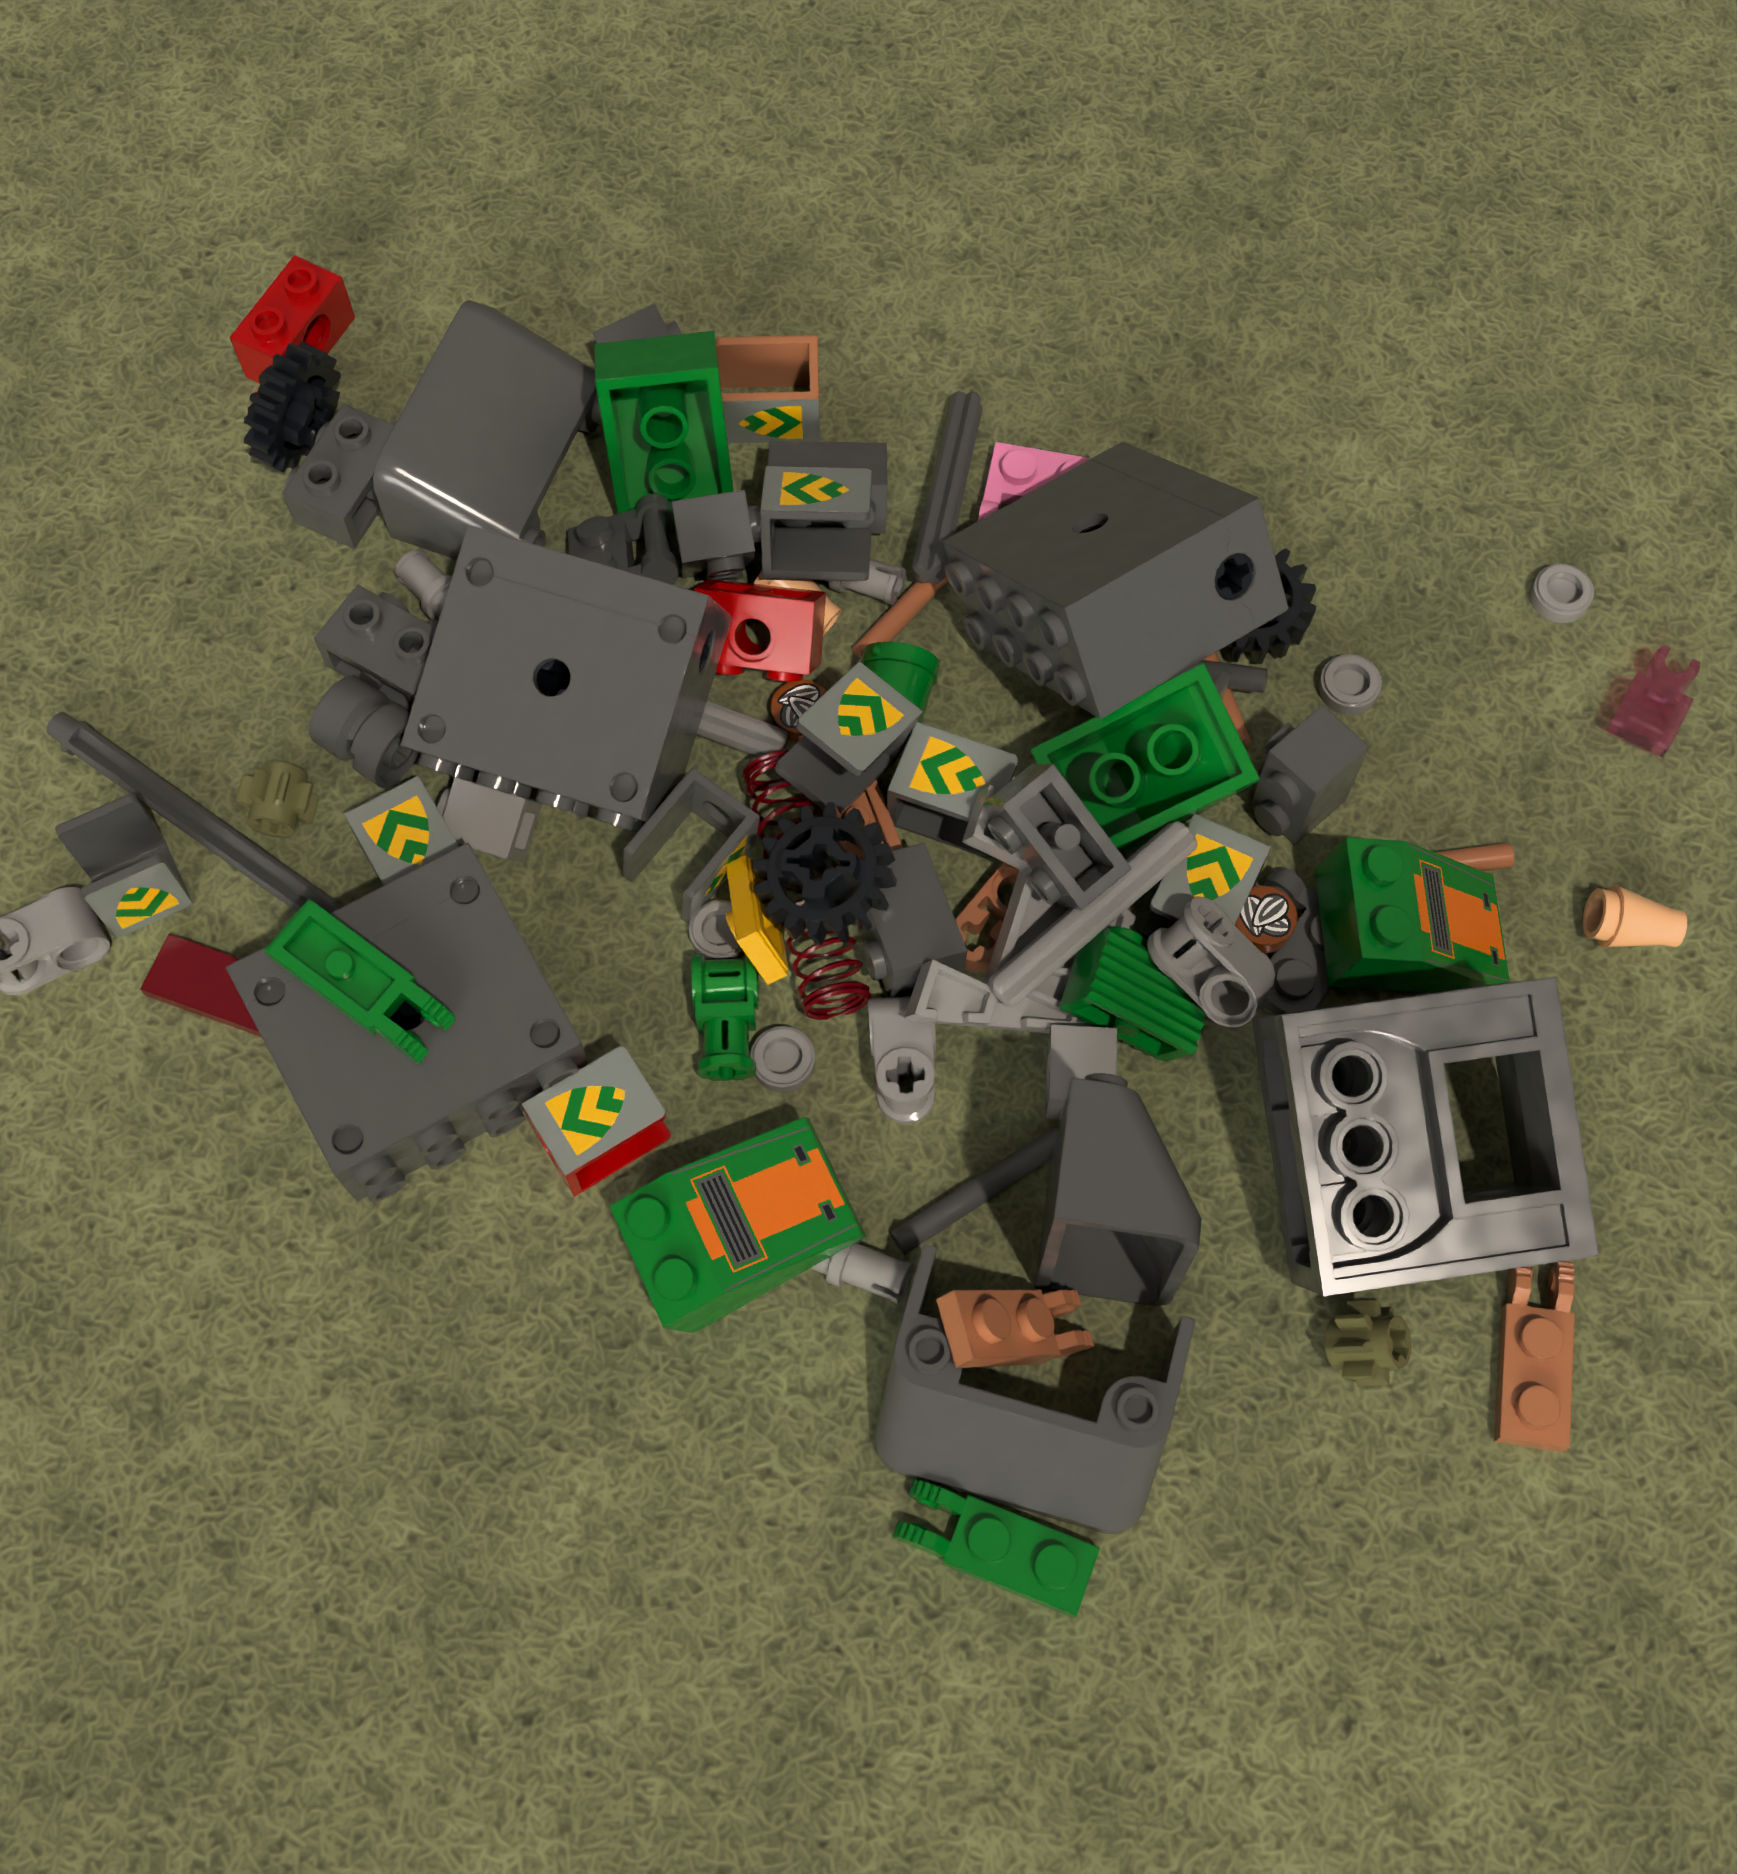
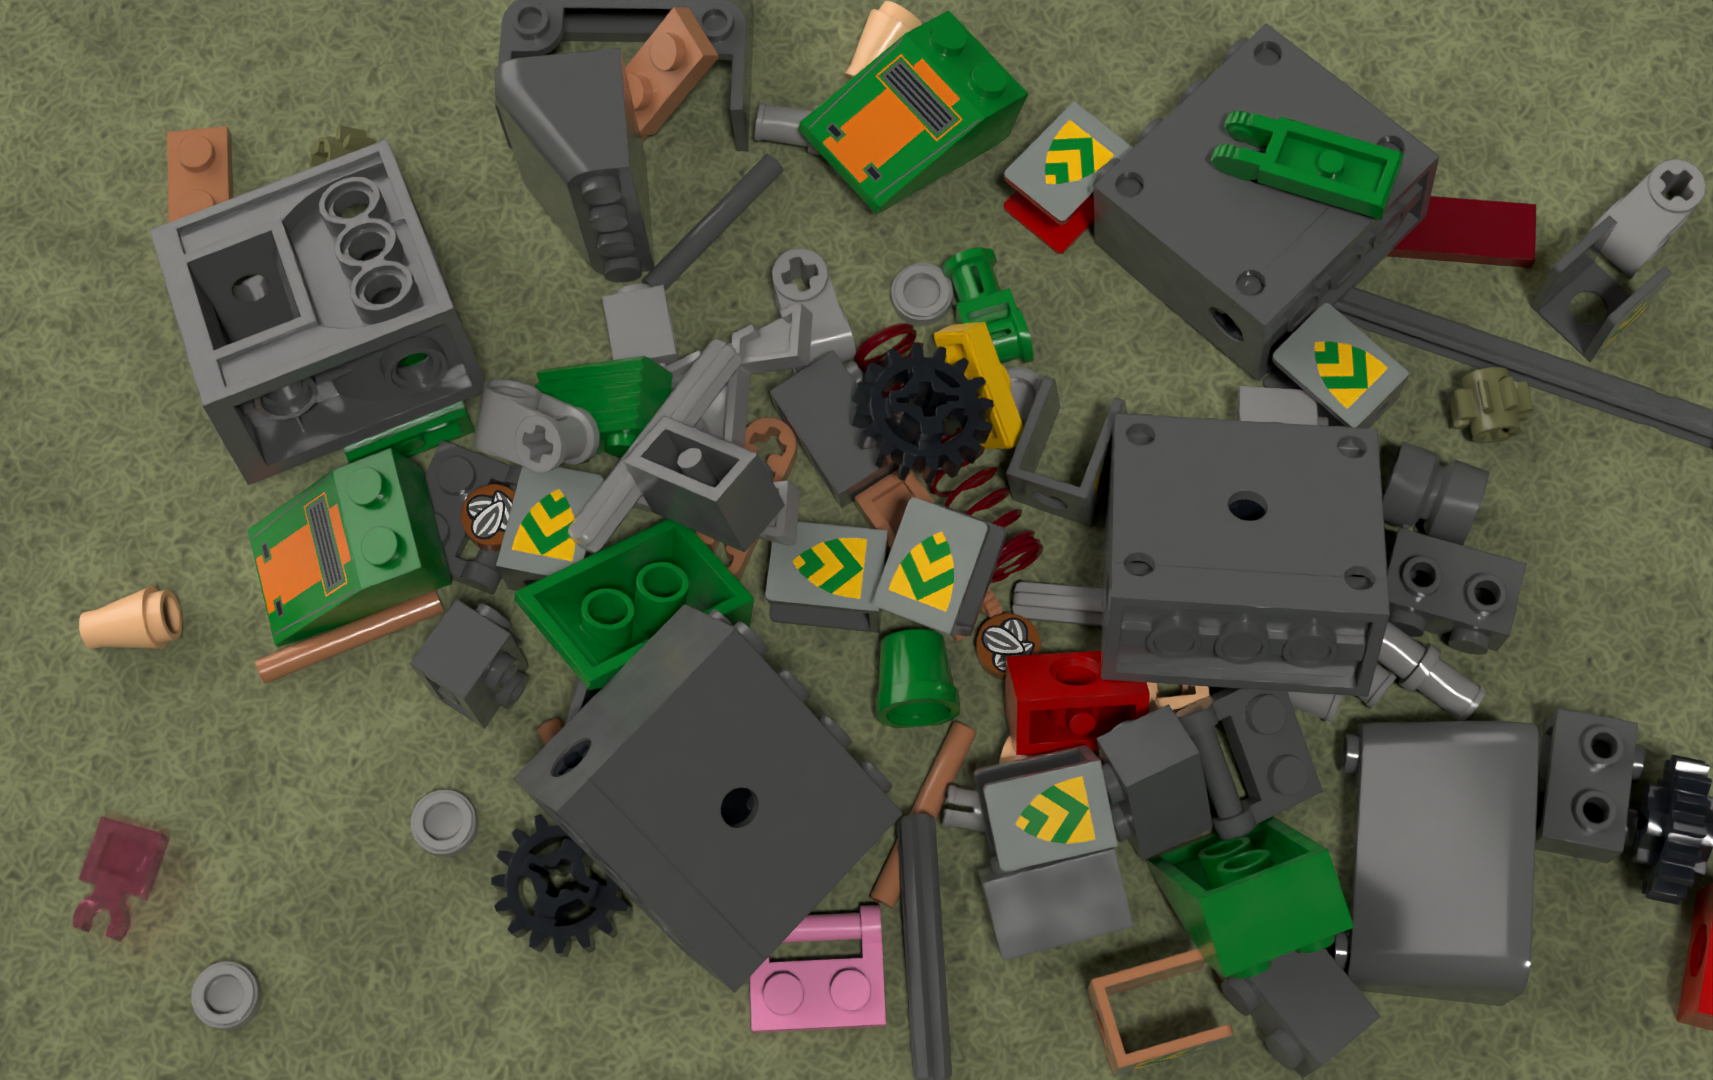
camera: 170 degrees right, 5 degrees up
(742, 1340) = (879, 33): none -> light nougat cone

